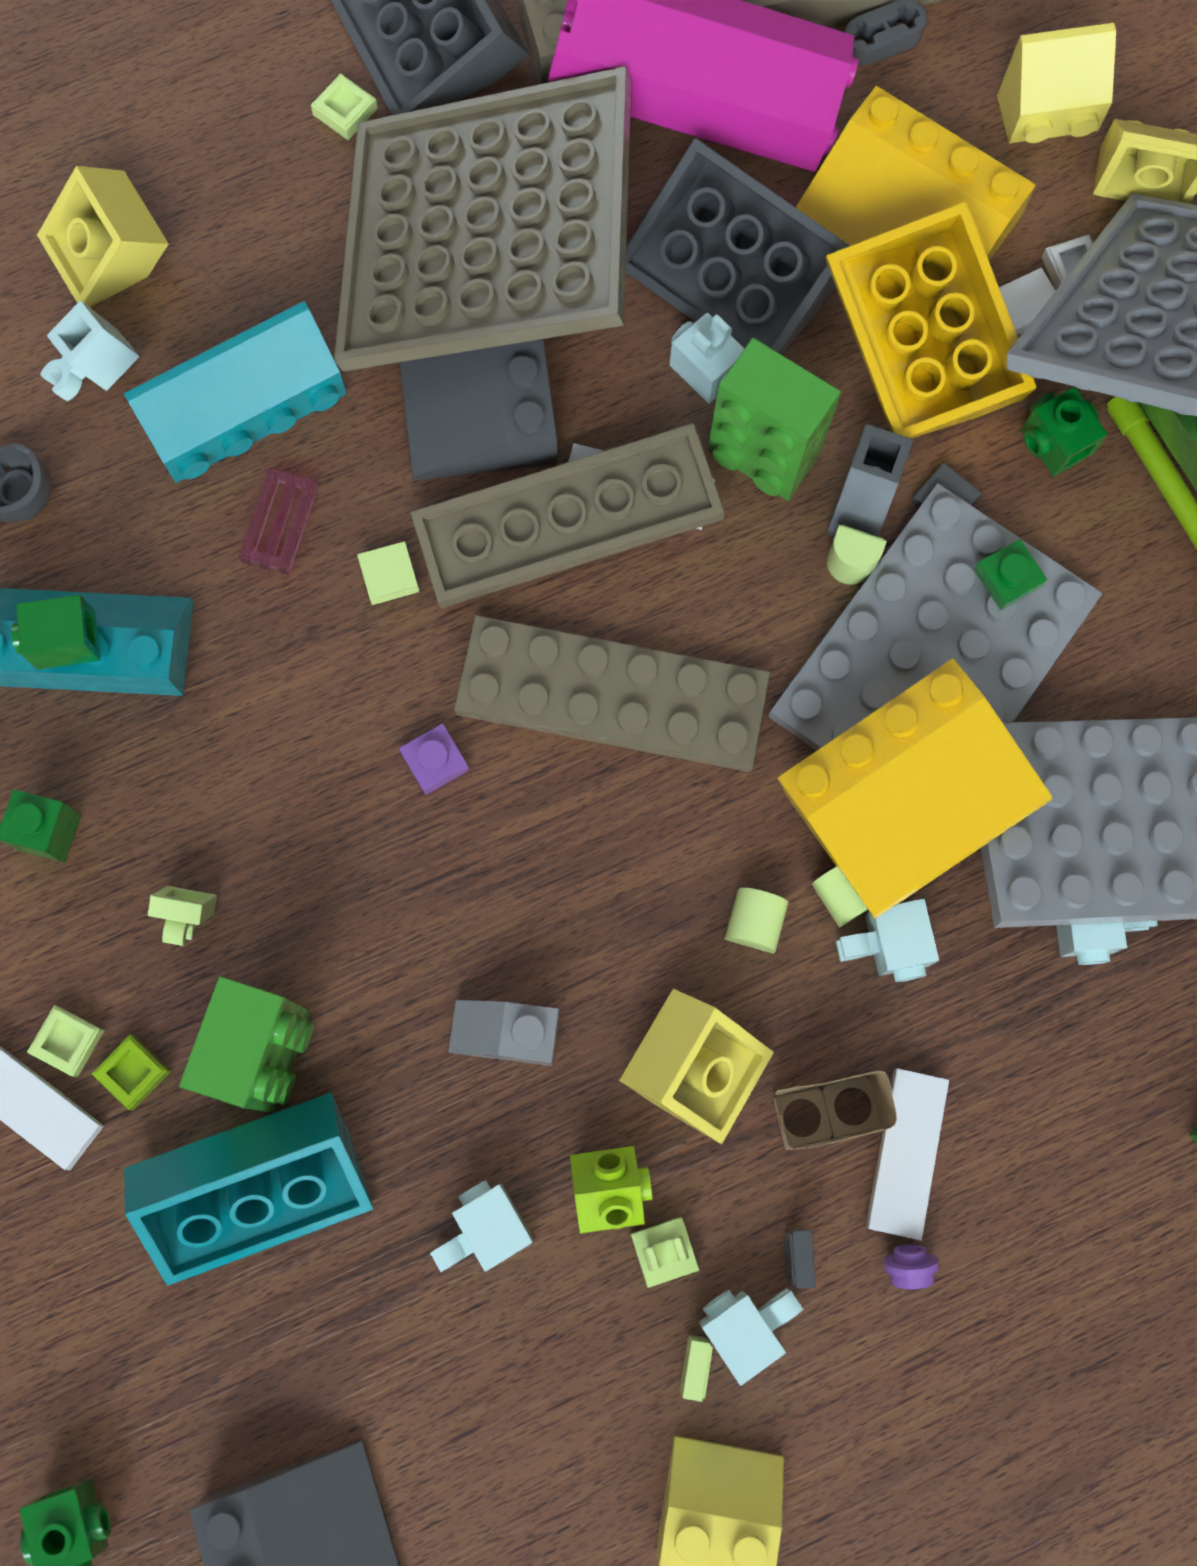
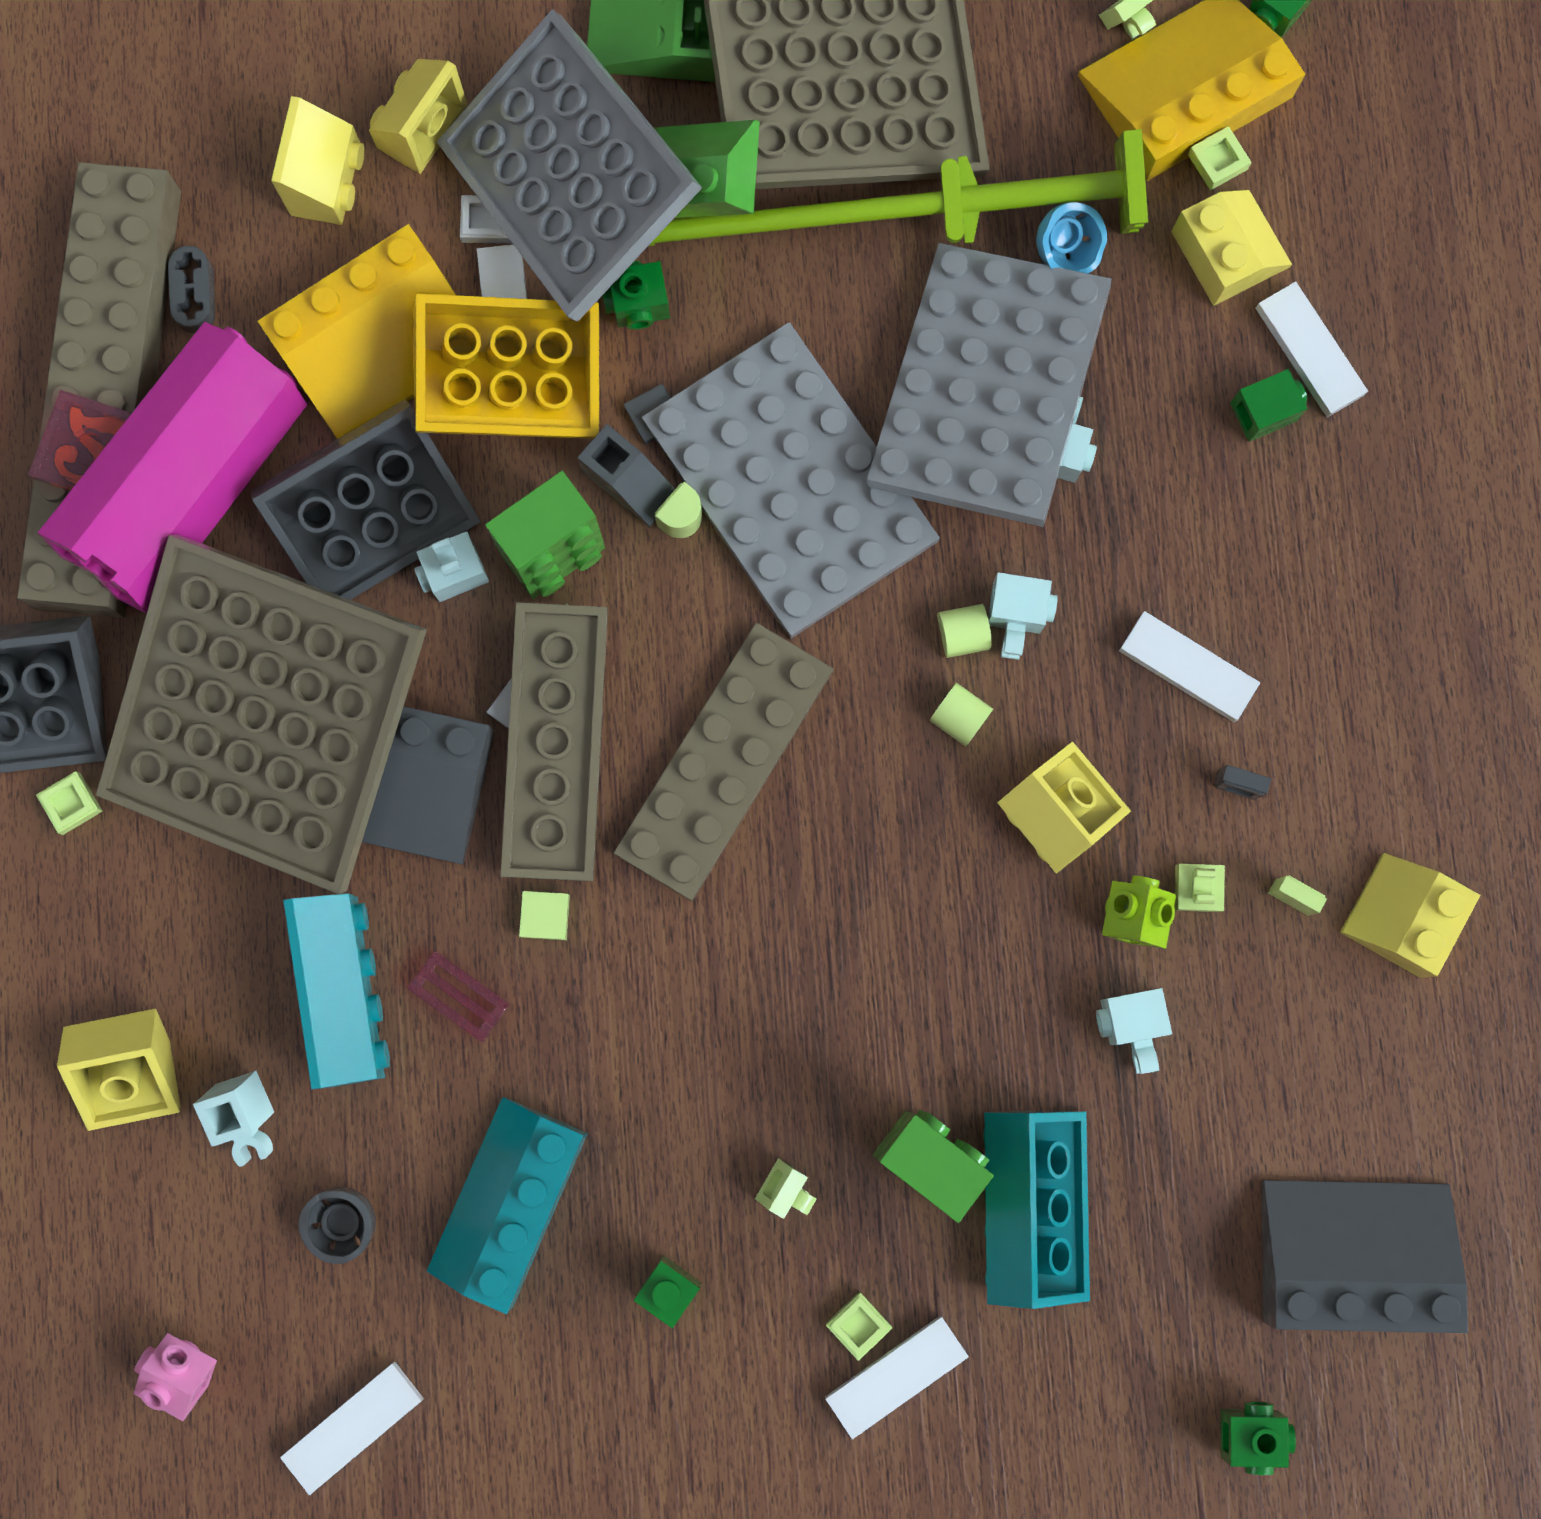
camera: 70 degrees left, 5 degrees up
(56, 632) = (514, 1217): green brick -> none
(131, 1072) = (905, 1277): lime tile -> none
(434, 759) = (727, 933): medium lavender plate -> none
(505, 1031) = (982, 953): light grey slope -> none
(744, 1333) = (1285, 846): light aqua brick -> none
(882, 1114) = (1160, 680): tan piece -> none
(911, 1267) = (1278, 698): medium lavender plate -> none
(914, 788) = (910, 544): yellow slope -> none
(1010, 574) = (749, 391): green plate -> none

